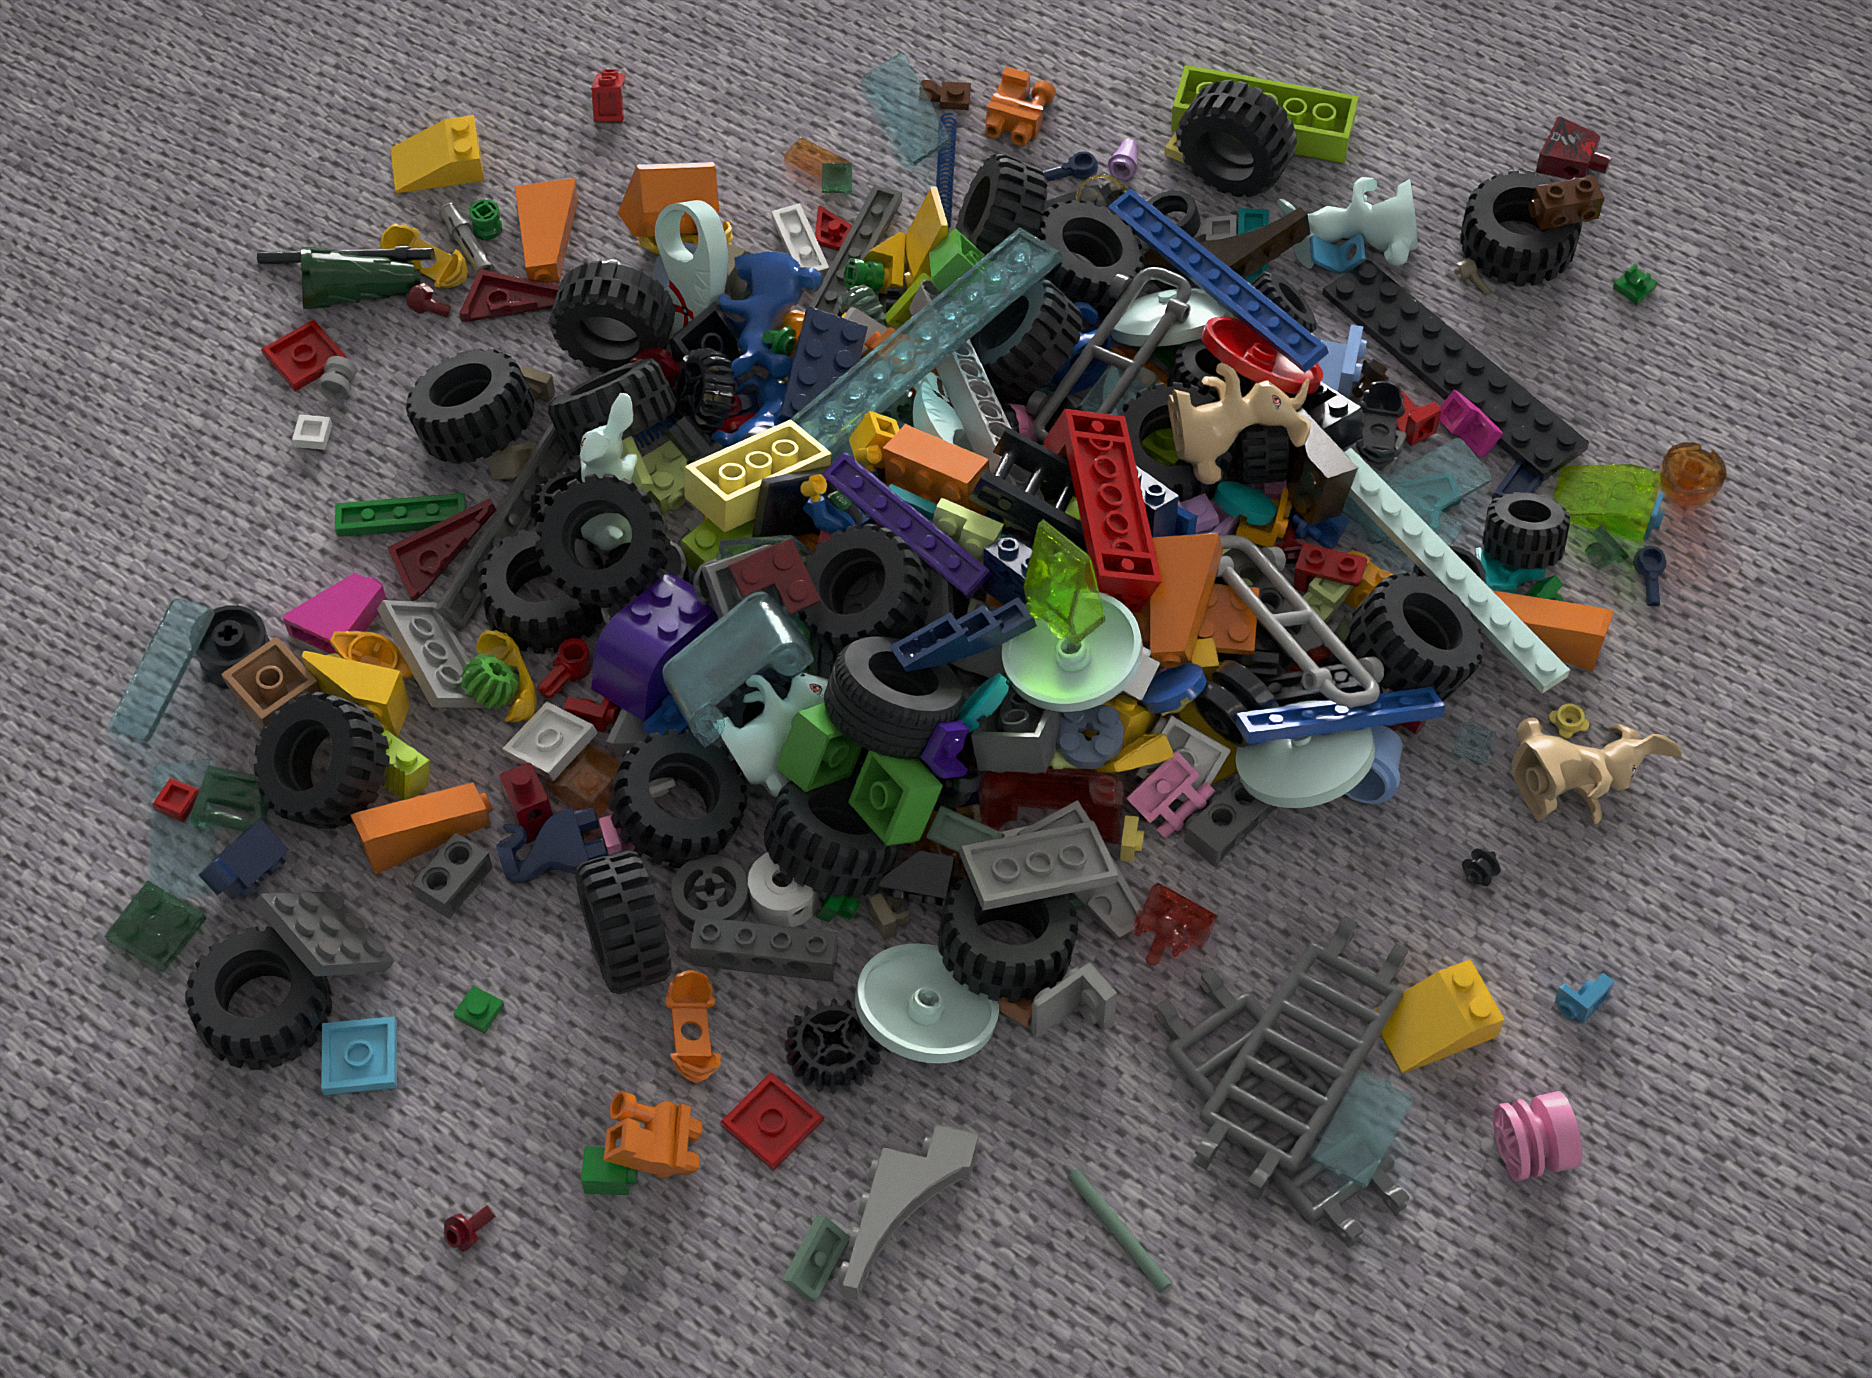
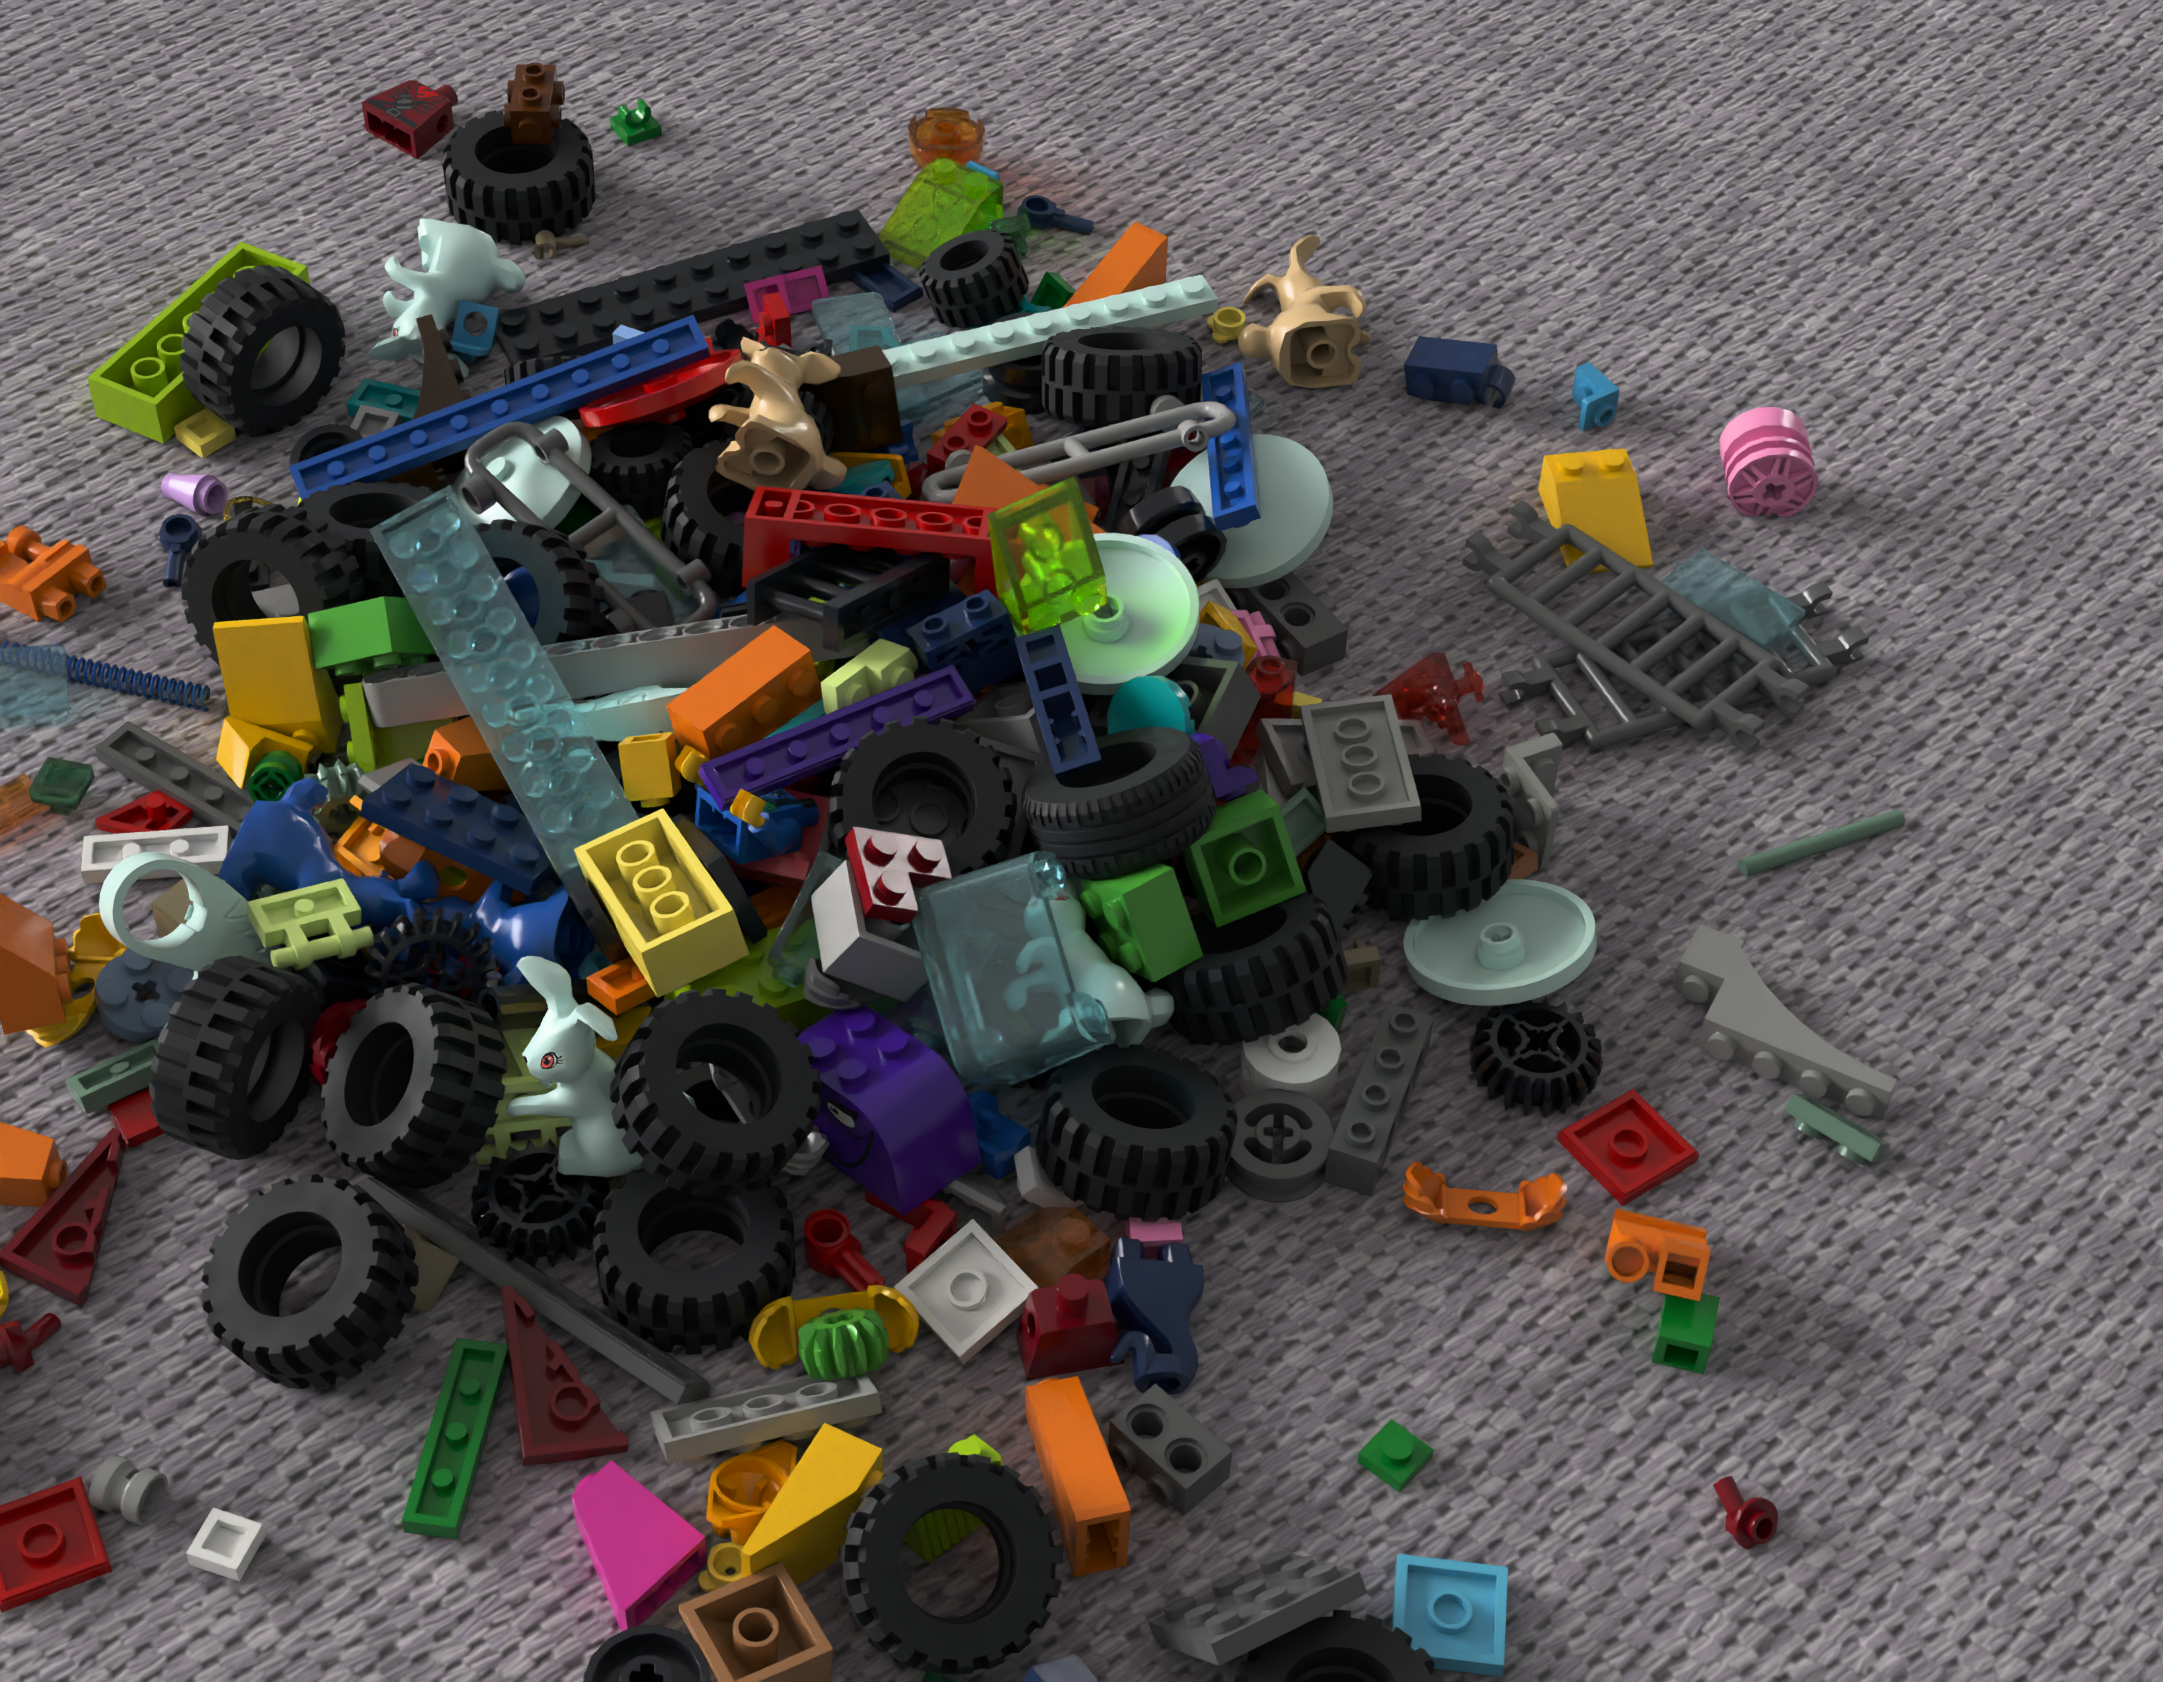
camera: 80 degrees left, 10 degrees down
(623, 921) = (1341, 1210): black tyre -> none
(711, 306) = (307, 913): none -> yellowish green plate
(782, 340) = (392, 860): green plate -> none
(1481, 867) = (1409, 434): black wheel -> none
(1568, 887) = (1456, 372): none -> dark blue hinge

